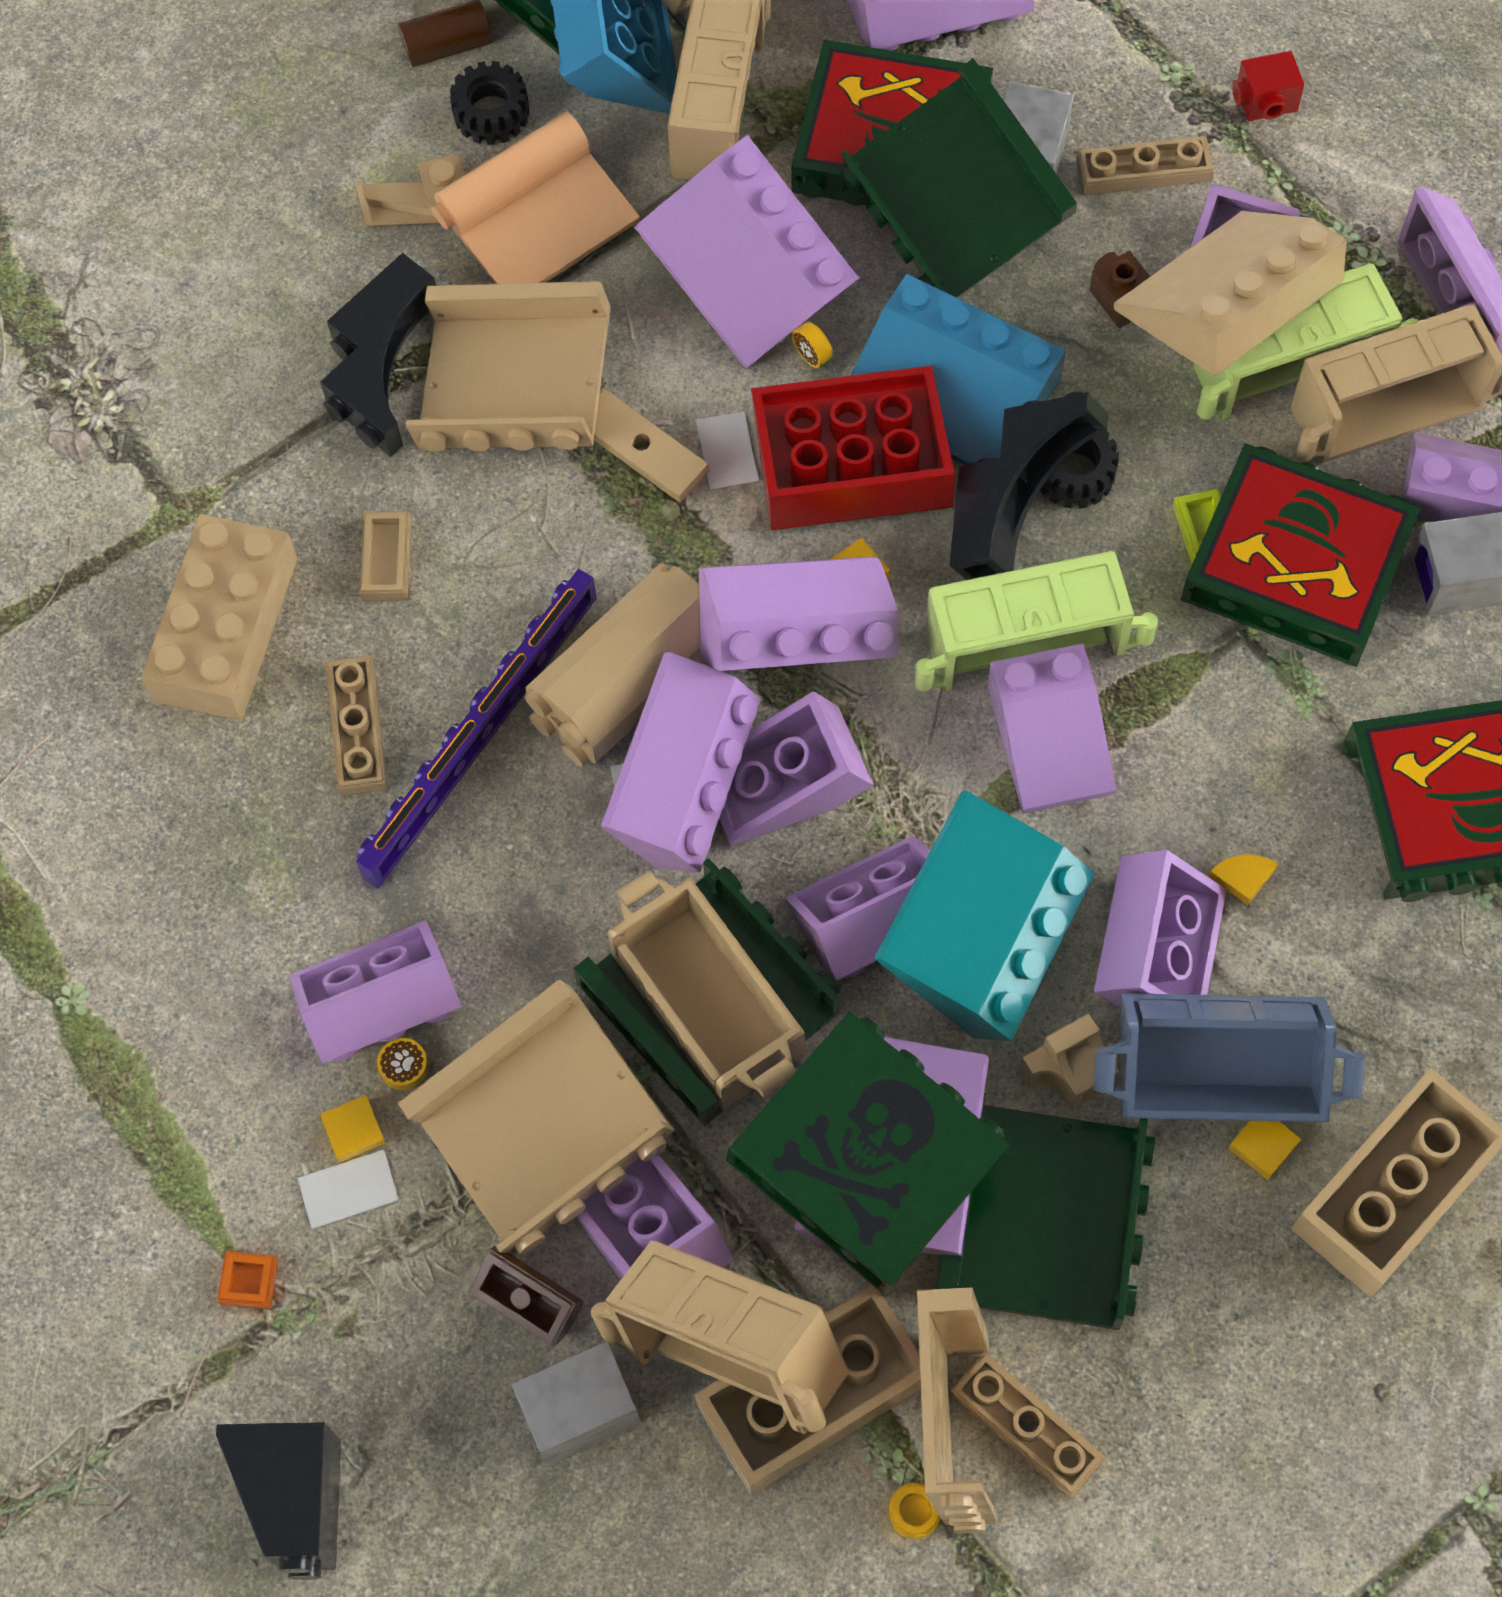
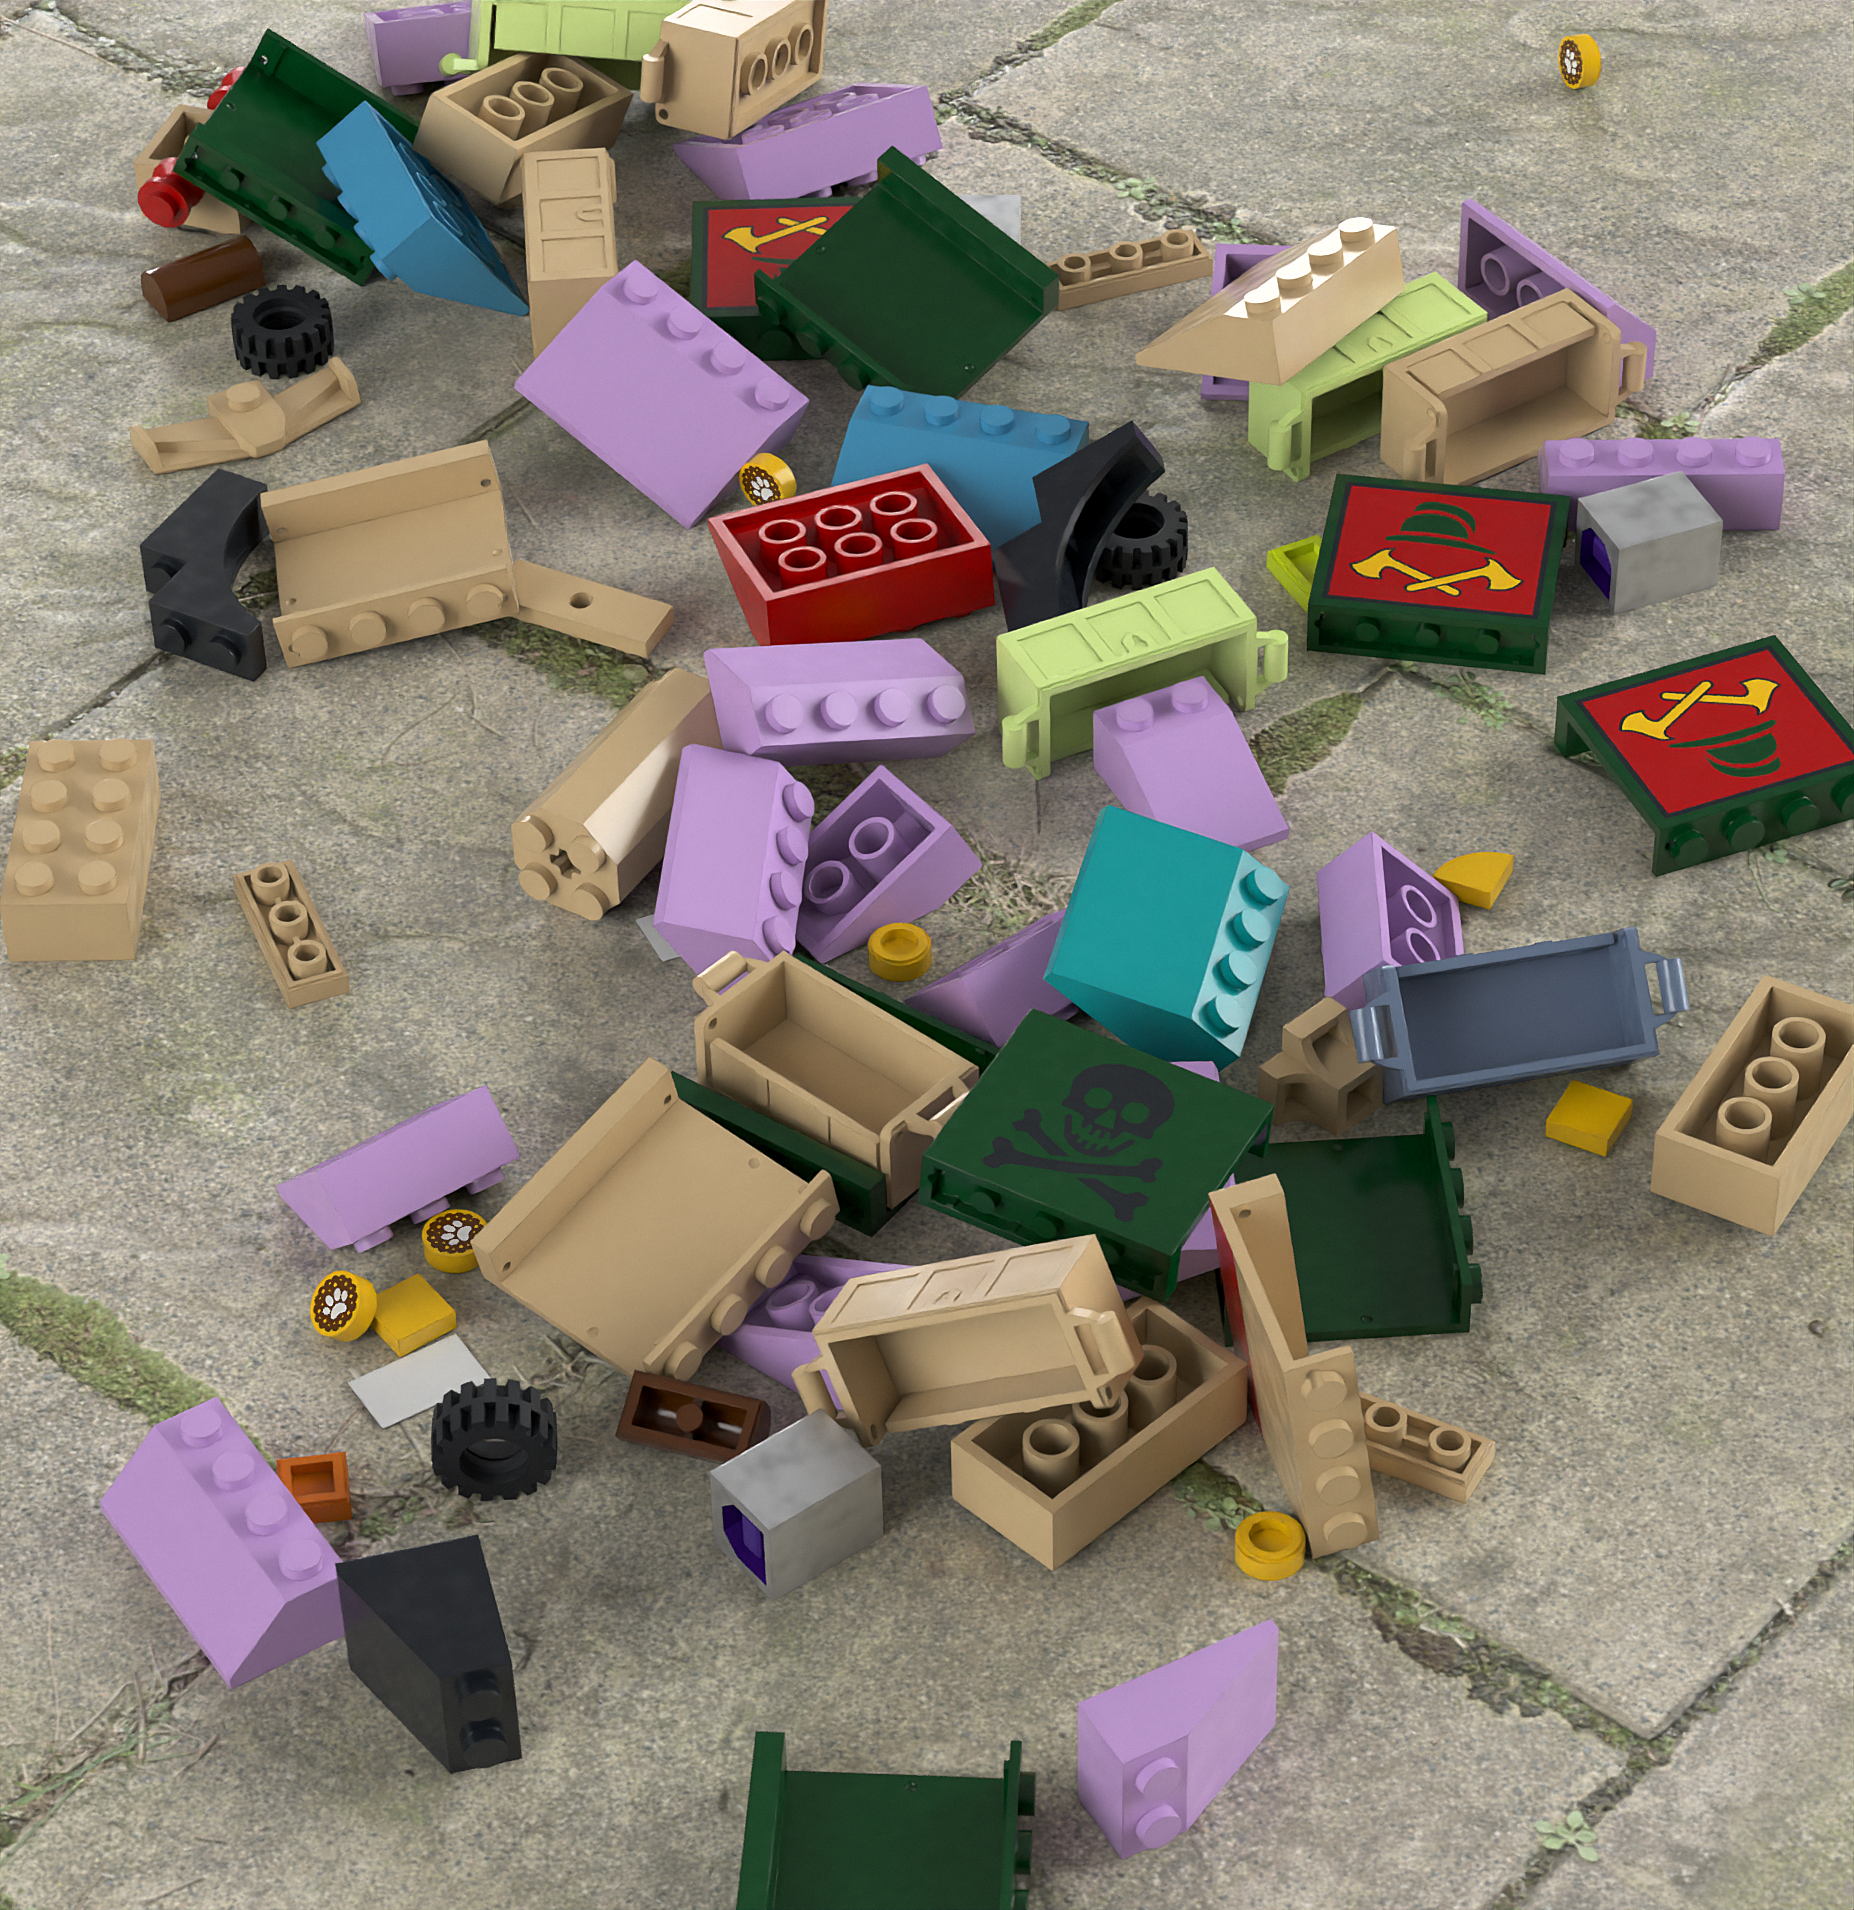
camera: 15 degrees left, 25 degrees down
(171, 1330) = (226, 1544): none -> lavender slope
(305, 1116) = (343, 1306): none -> tile
(374, 1289) = (488, 1413): none -> black tyre
(385, 556) = (278, 769): tan tile -> none
(467, 740) = (448, 908): dark purple plate -> none
(536, 206) = (370, 401): light nougat door -> none
(727, 450) = (696, 605): white sticker -> none
(793, 849) = (899, 952): none -> yellow tile
(1113, 279) = (1135, 387): reddish brown brick -> none
(1268, 86) = (1253, 172): red brick -> none

